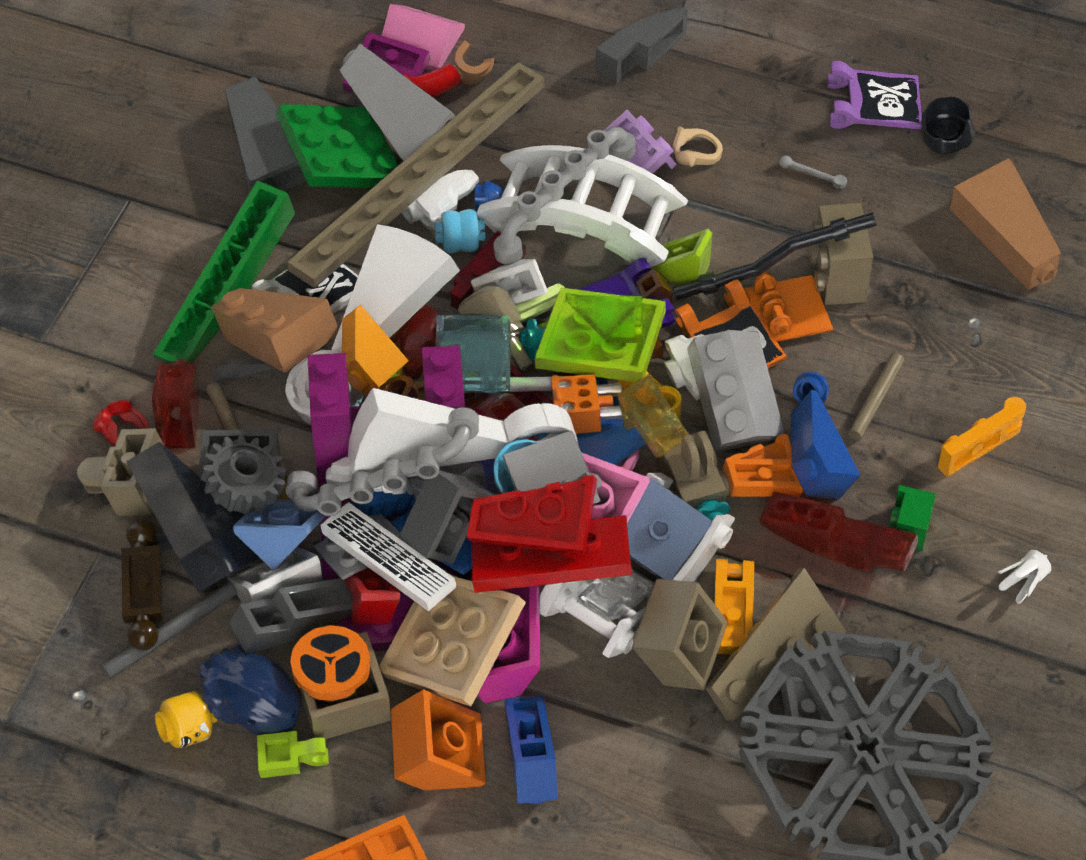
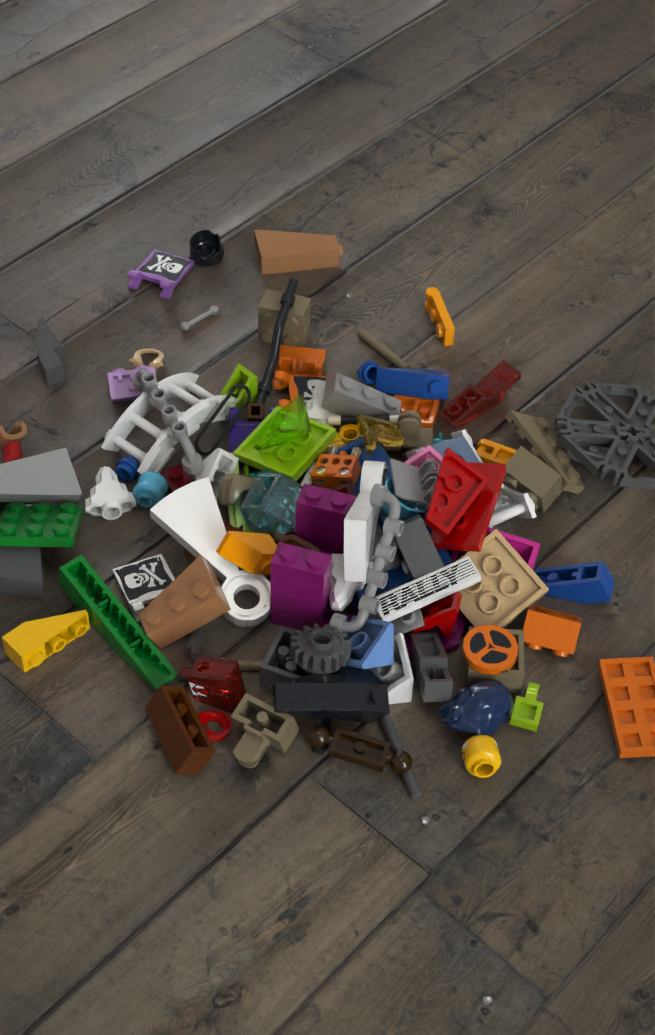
camera: 70 degrees left, 5 degrees down
(92, 392) = (179, 730): none -> reddish brown brick
(174, 217) = (42, 637): none -> yellow slope
(415, 175) = (101, 492): dark tan plate -> none
(614, 242) = (215, 414): none -> black piece
(694, 405) = (351, 419): none -> bar
(913, 512) = (480, 361): green brick -> none
(1032, 566) = (536, 332): white piece -> none

